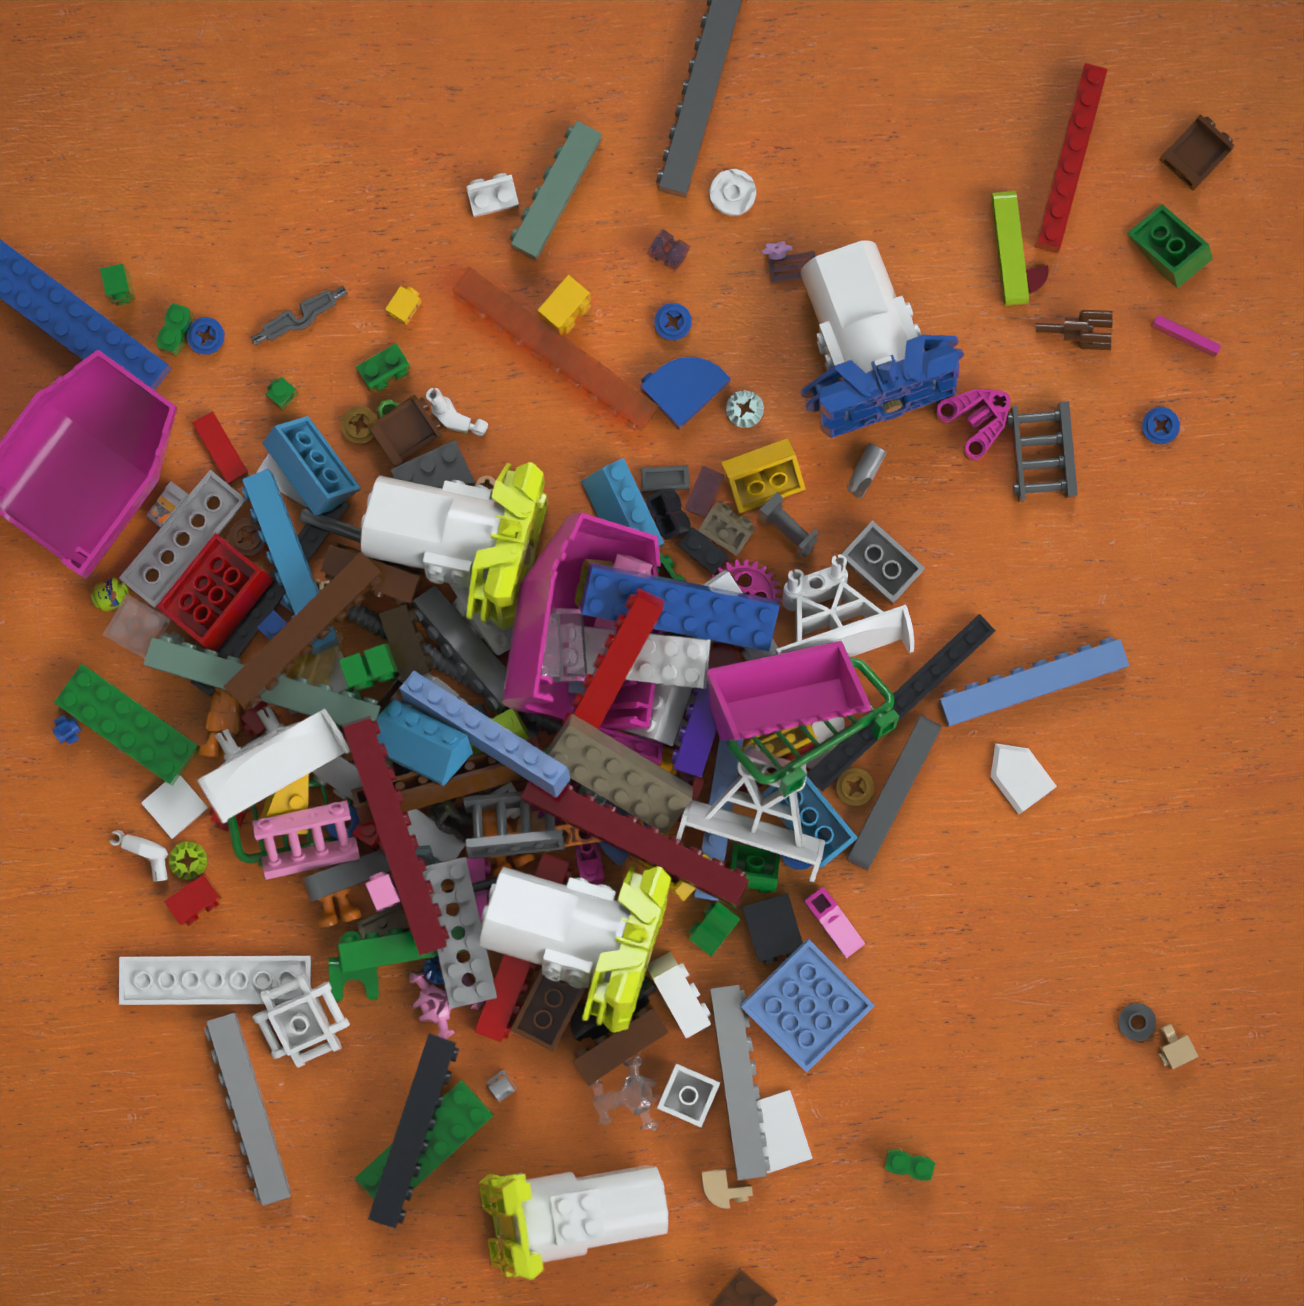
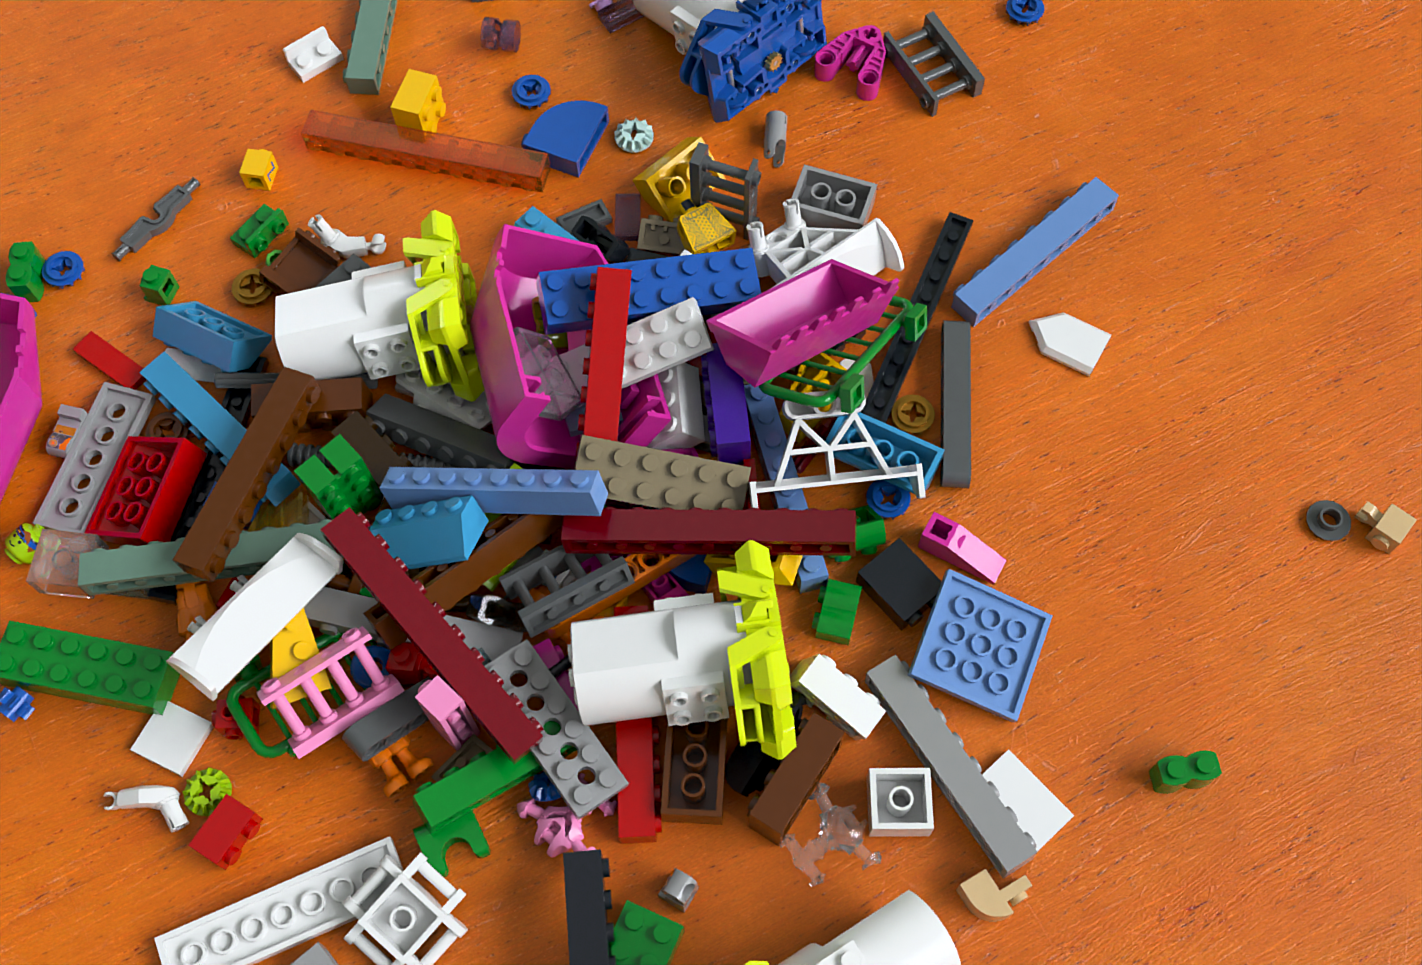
camera: 20 degrees left, 20 degrees down
(756, 548) = (704, 228): none -> yellow torso

